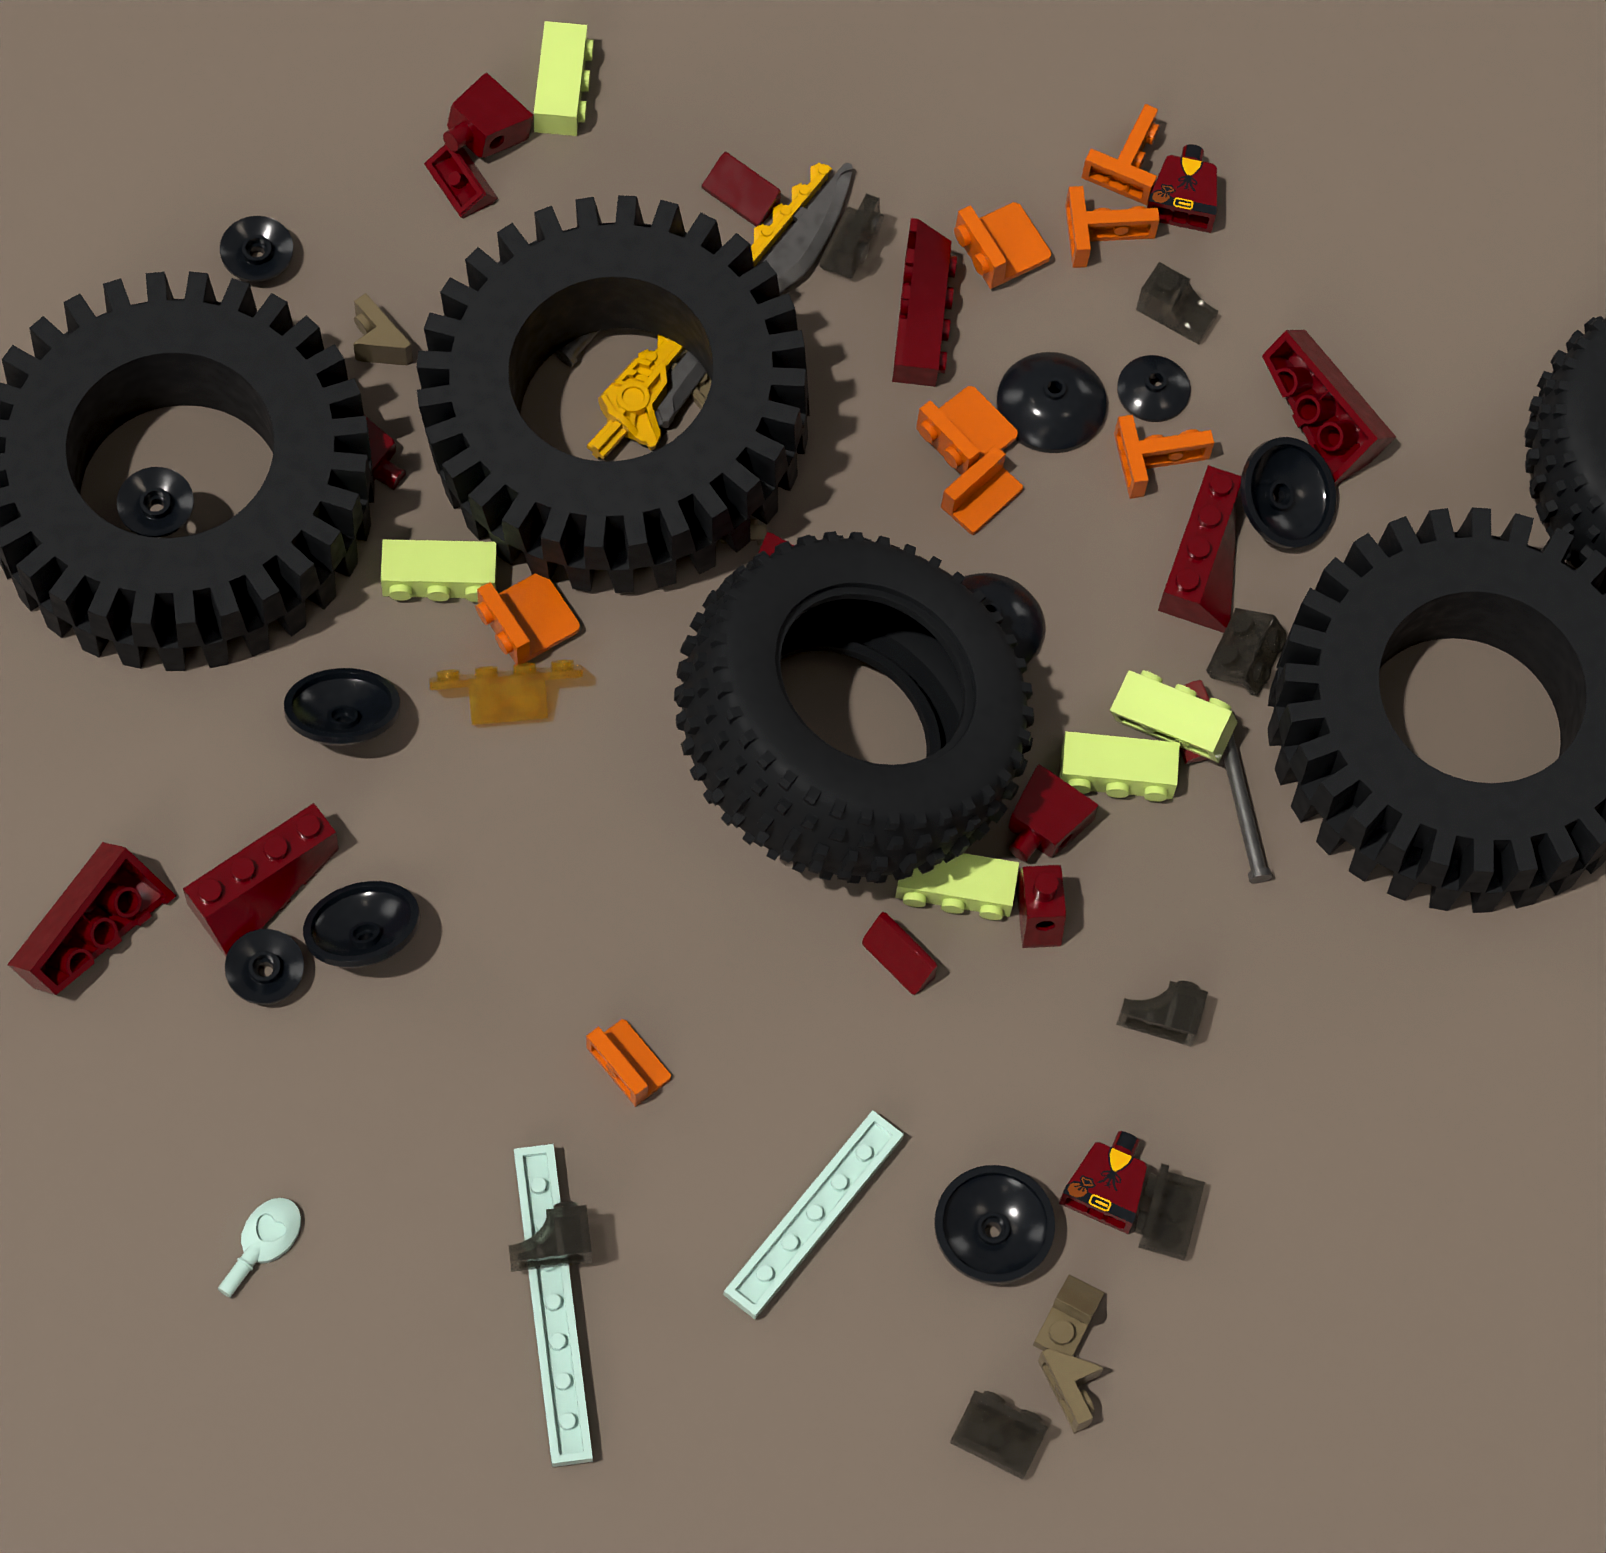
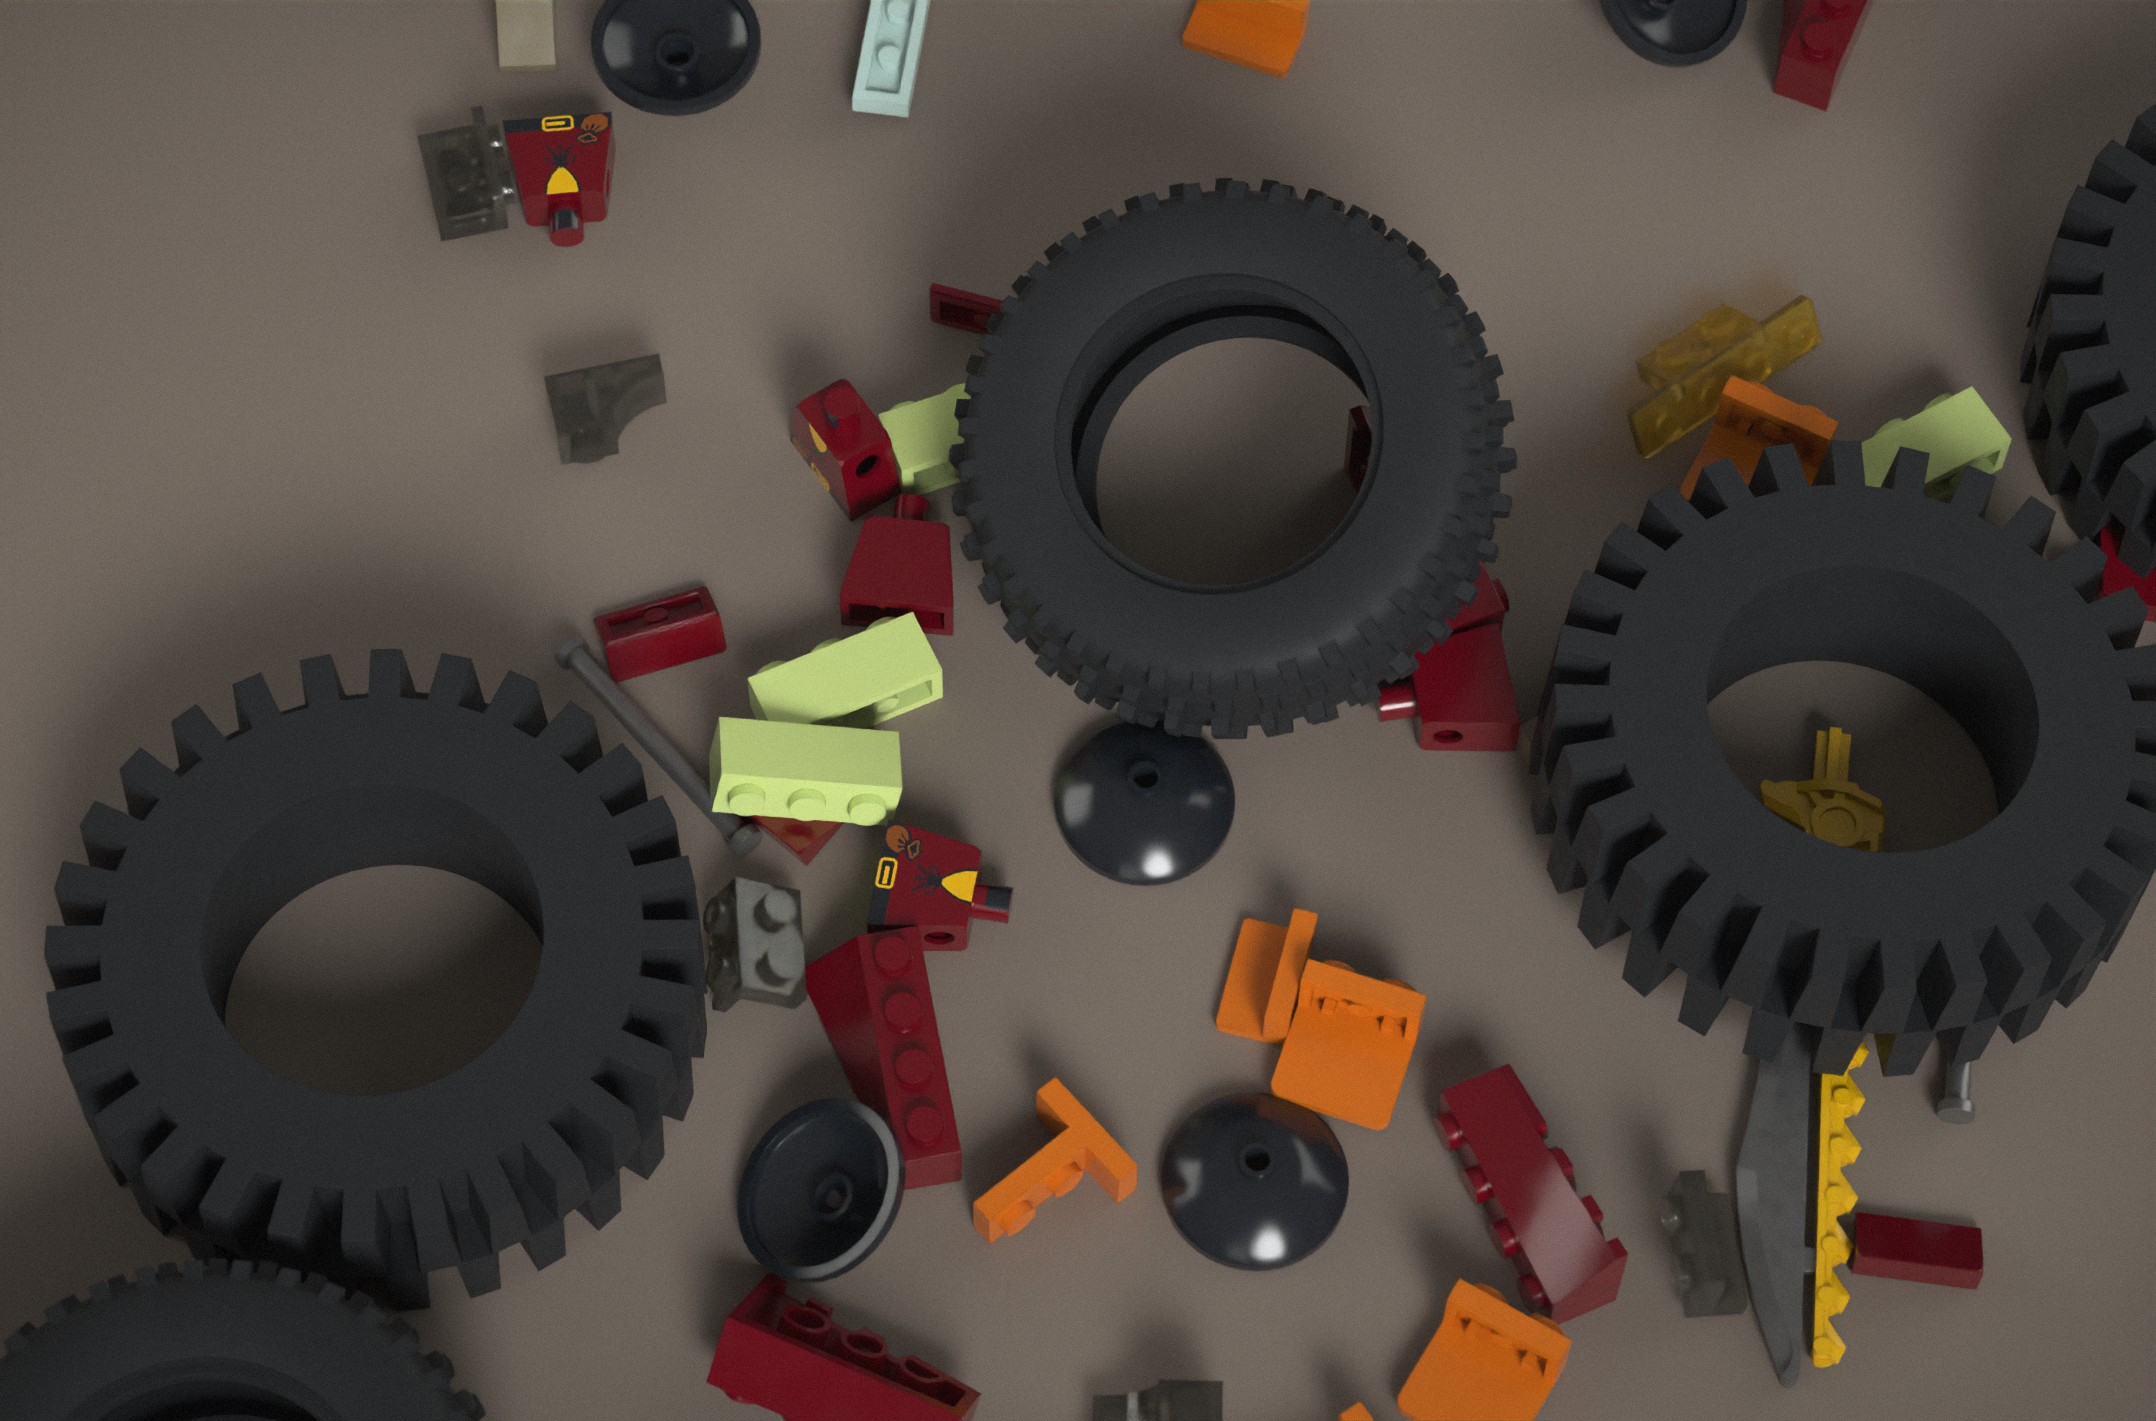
camera: 155 degrees right, 5 degrees down
(342, 706) = (1925, 206): black dish -> none
(1138, 626) = (933, 886): none -> dark red torso
(1150, 401) = (1111, 1316): black dish -> none
(1201, 866) = (660, 634): none -> dark red slope

